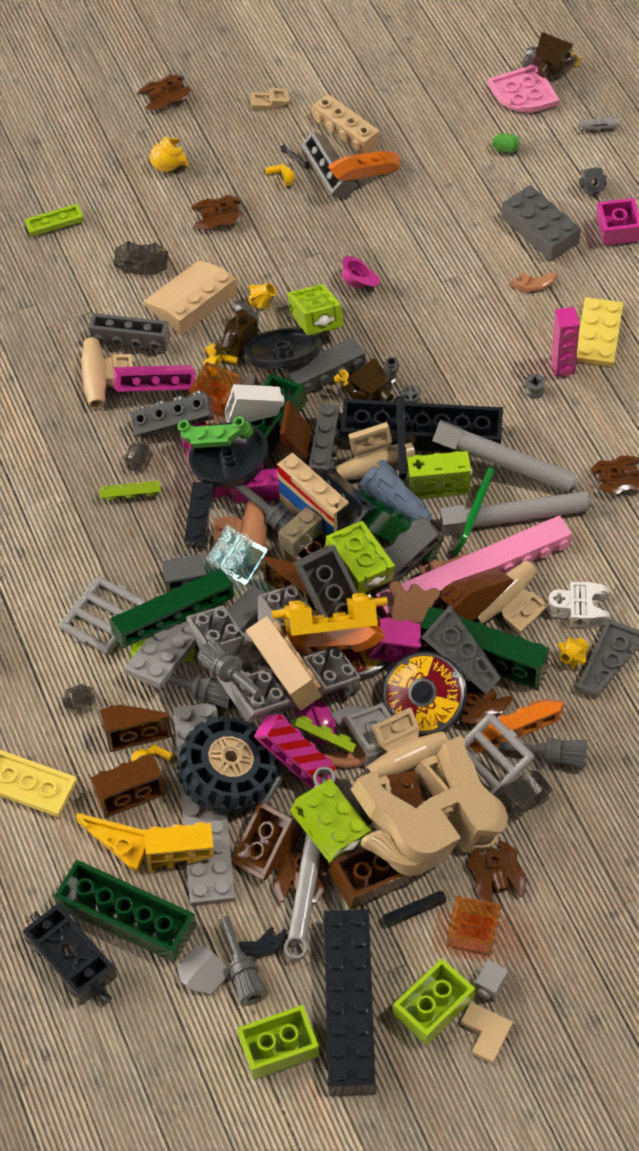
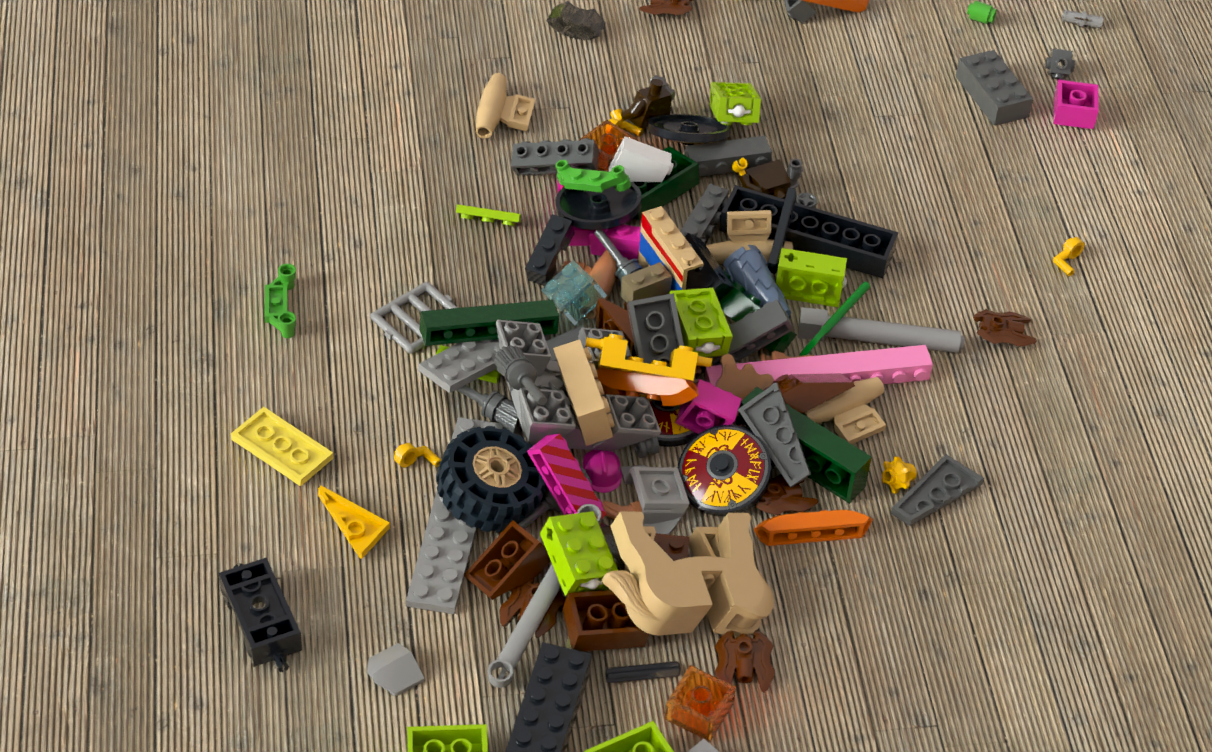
camera: 10 degrees right, 10 degrees down
(78, 698) = (363, 383): clear smoke head -> none
(126, 910) = (335, 587): dark green brick -> none
(128, 785) = (382, 472): reddish brown brick -> none
(130, 331) = (541, 78): dark grey brick -> none
(134, 726) = (409, 420): reddish brown slope -> none
(138, 456) = (508, 187): clear smoke head -> none
(153, 378) = (548, 121): dark pink brick -> none
(178, 844) = (411, 537): yellow wedge -> none
(182, 570) = (514, 292): dark grey brick -> none
(192, 295) = (616, 66): tan slope -> none
(243, 970) = (437, 680): dark grey piece -> none
(261, 295) = (685, 80): yellow rock -> none
(264, 946) = (468, 664): black piece -> none
(295, 434) = (674, 197): reddish brown slope -> none
(323, 733) = (605, 478): lime plate -> none
(357, 273) = (789, 85): dark pink piece -> none
(402, 745) = (683, 506): tan plate -> none
(457, 438) = (886, 277): light grey brick -> none
(511, 736) = (803, 531): light grey bar -> none
(524, 793) = (798, 592): clear smoke brick -> none
(531, 389) = (939, 227): dark grey wheel -> none
(532, 284) = (964, 138): nougat piece -> none
(556, 751) = (846, 561): dark grey piece -> none
(565, 341) = (982, 187): dark pink brick -> none
(569, 602) = (930, 430): white piece -> none
(599, 332) = (1023, 197): light yellow plate -> none

